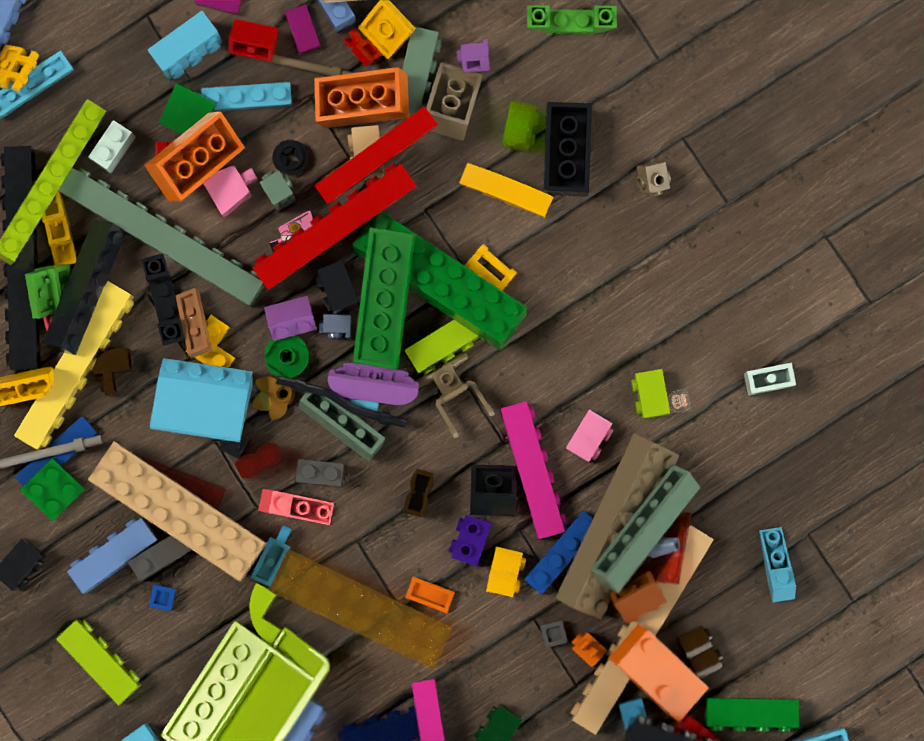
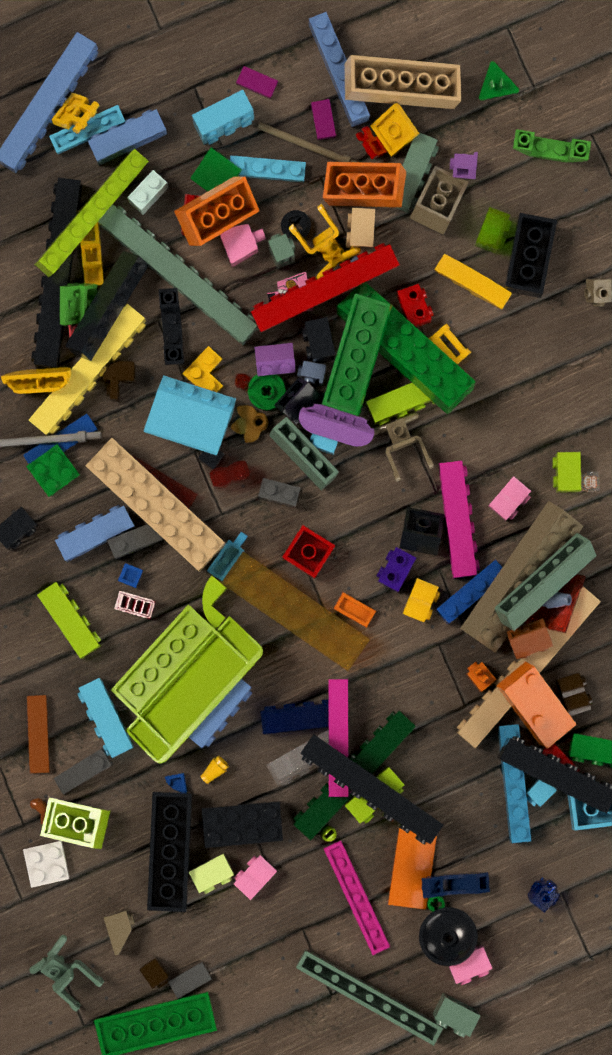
camera: 10 degrees right, 0 degrees up
(77, 86) = (127, 136): none -> medium blue brick
(192, 631) = (150, 609): none -> slope
(193, 322) = (193, 350): medium nougat plate -> none
(253, 40) = (280, 122): red brick -> none
(253, 346) = (242, 381): none -> clear red hinge
(296, 506) = (254, 517): coral slope -> none
(322, 170) = (326, 244): none -> yellow piece
(322, 359) = (299, 395): none -> black brick
(365, 537) = (308, 552): none -> red brick
(376, 155) = (369, 234): red tile -> none
(382, 417) = (274, 416): black bar -> none
(417, 500) = (357, 527): dark brown brick -> none
(442, 228) = (414, 305): none -> red brick
(553, 634) = (453, 659): dark grey plate -> none

